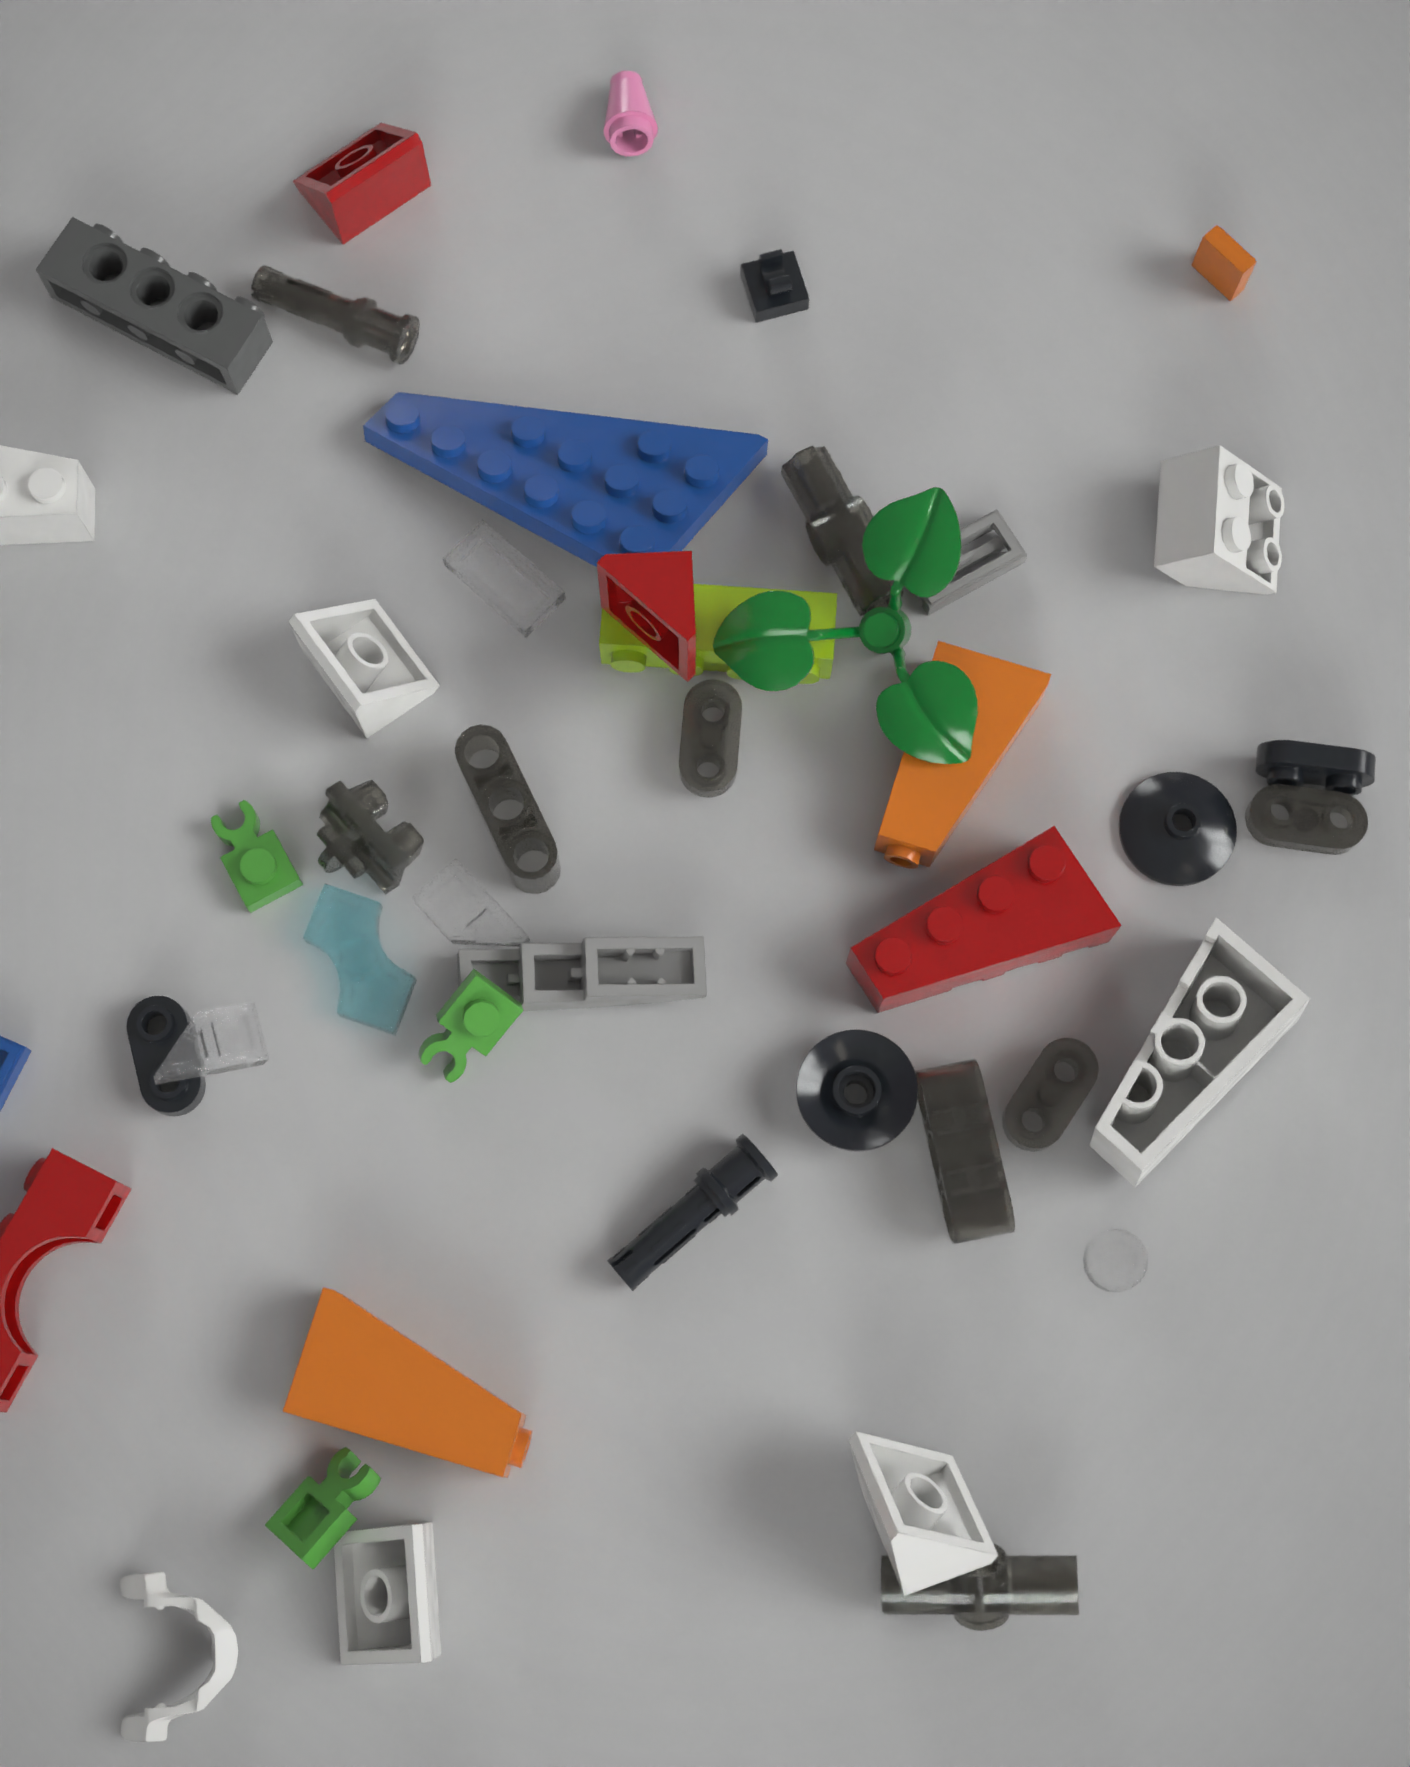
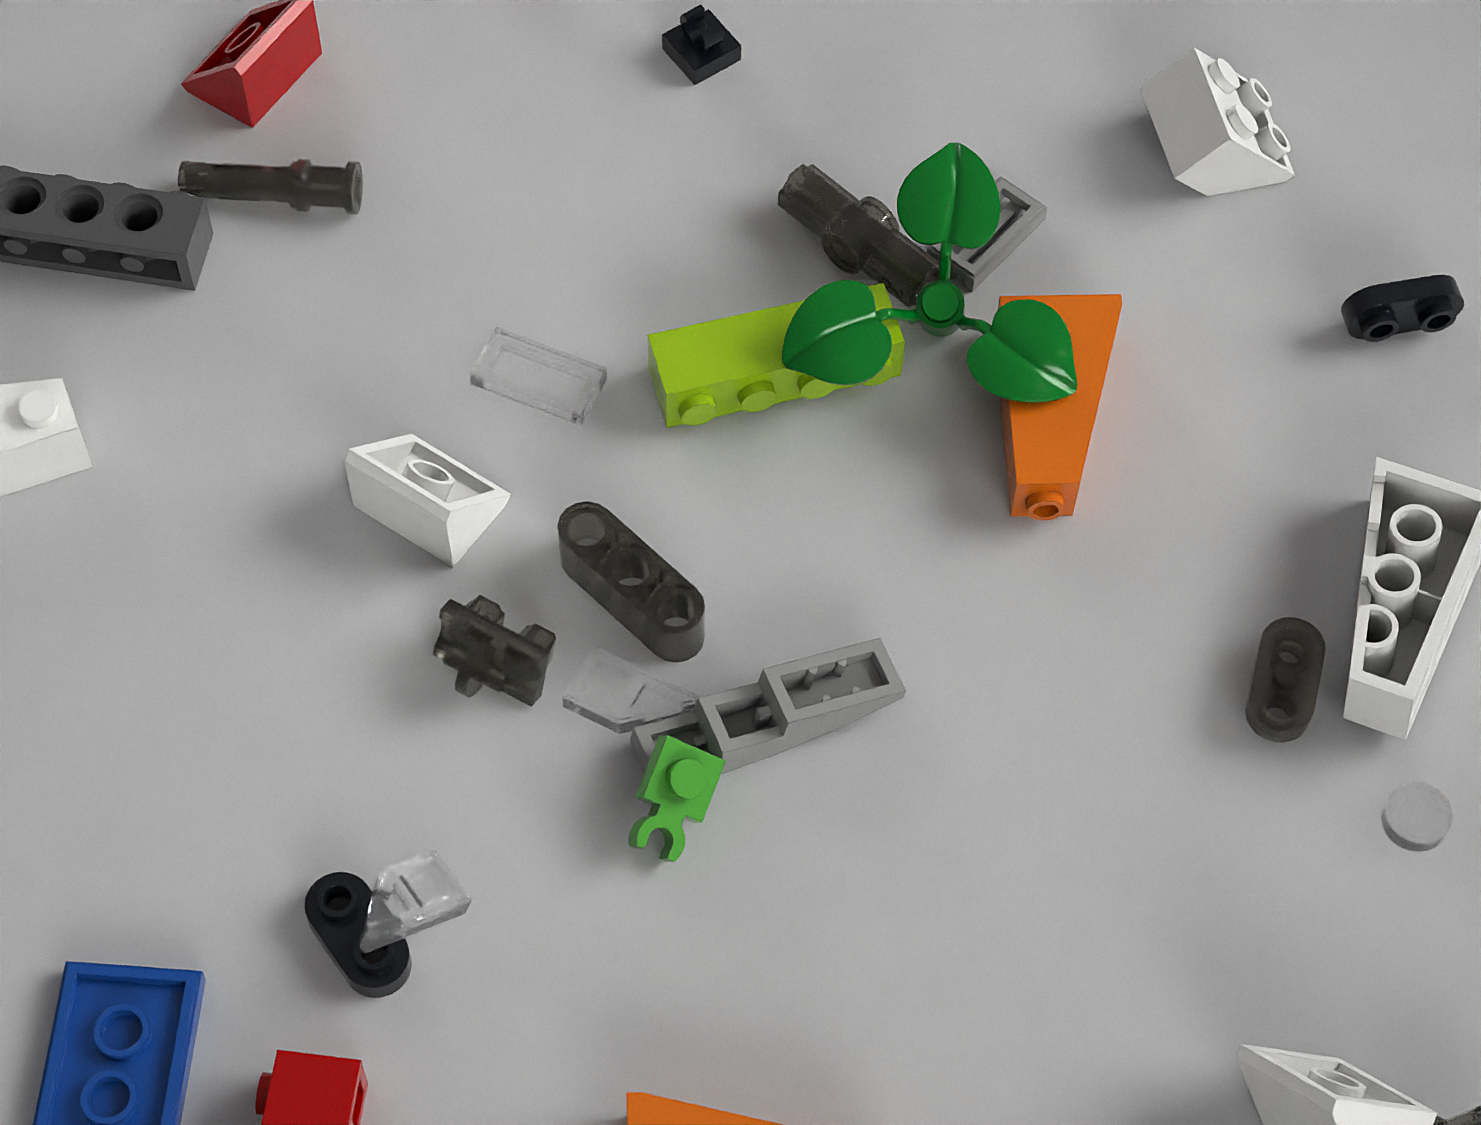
camera: 20 degrees left, 15 degrees down
(257, 863) = (382, 718): bright green plate -> none
(370, 984) = (551, 794): clear light blue tile -> none
(570, 475) = (601, 261): blue wing -> none
(654, 602) = (718, 327): red slope -> none
(710, 741) = (810, 461): clear smoke plate -> none
(714, 1194) = (991, 881): black pin -> none
(864, 1060) = (1101, 709): black dish -> none
(964, 1152) = (1225, 758): clear smoke beam -> none
(996, 920) = (1161, 535): red wedge -> none
(1162, 849) = (1292, 426): black dish -> none
(1308, 821) = (1418, 361): clear smoke plate -> none

